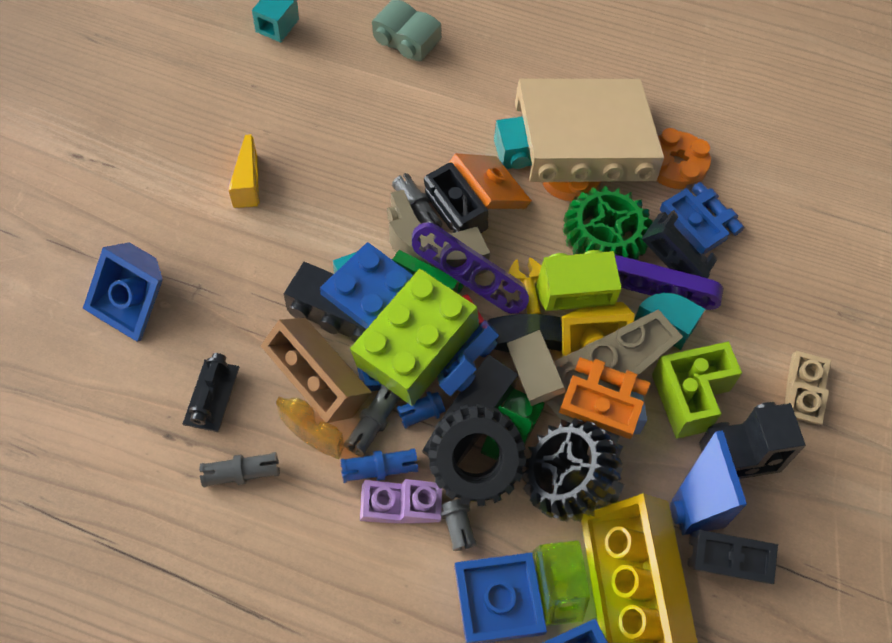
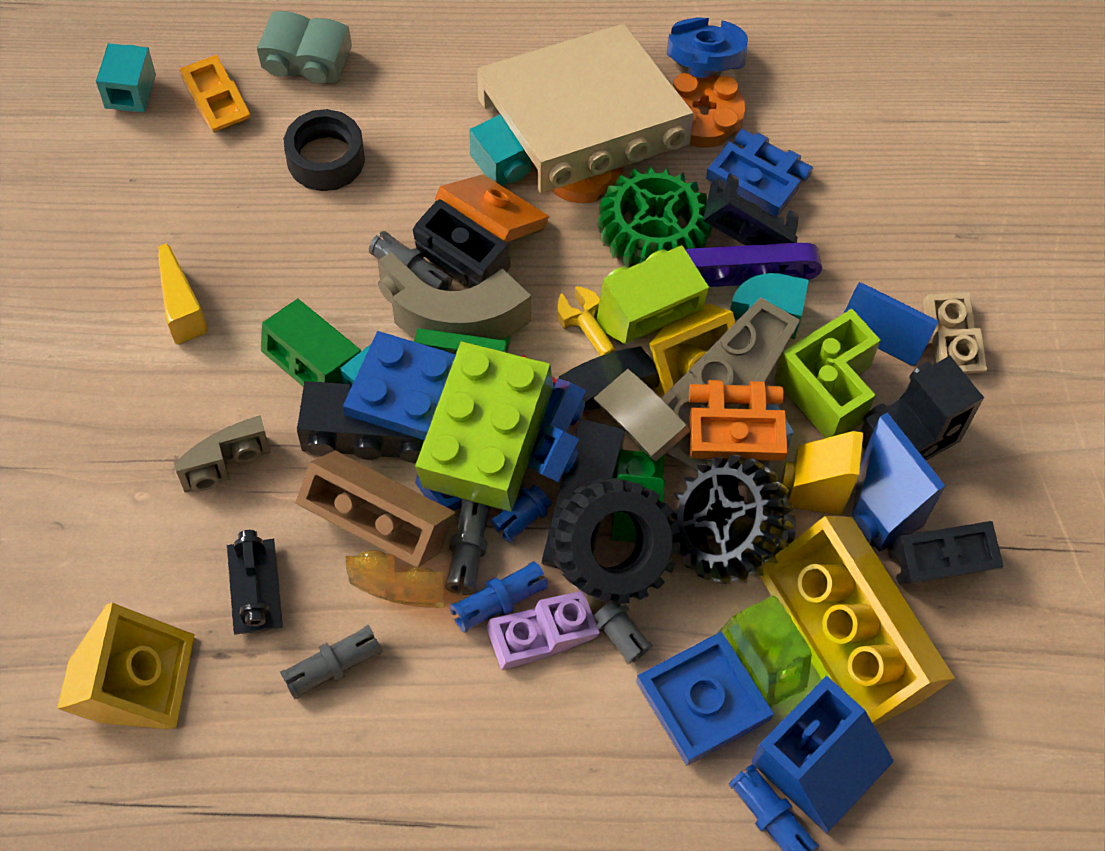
camera: 20 degrees left, 0 degrees up
(98, 424) = (128, 671): none -> yellow slope
(124, 288) = (87, 493): blue slope -> none
(216, 295) = (206, 462): none -> dark tan slope
(318, 235) = (306, 344): none -> green hinge
(332, 43) = (214, 93): none -> light orange slope
(390, 86) = (317, 125): none -> black tyre
(466, 273) = (514, 325): dark purple beam -> none
(658, 459) = (824, 473): none -> yellow slope
(697, 115) = (706, 46): none -> blue plate
(759, 364) = (900, 328): none -> blue slope

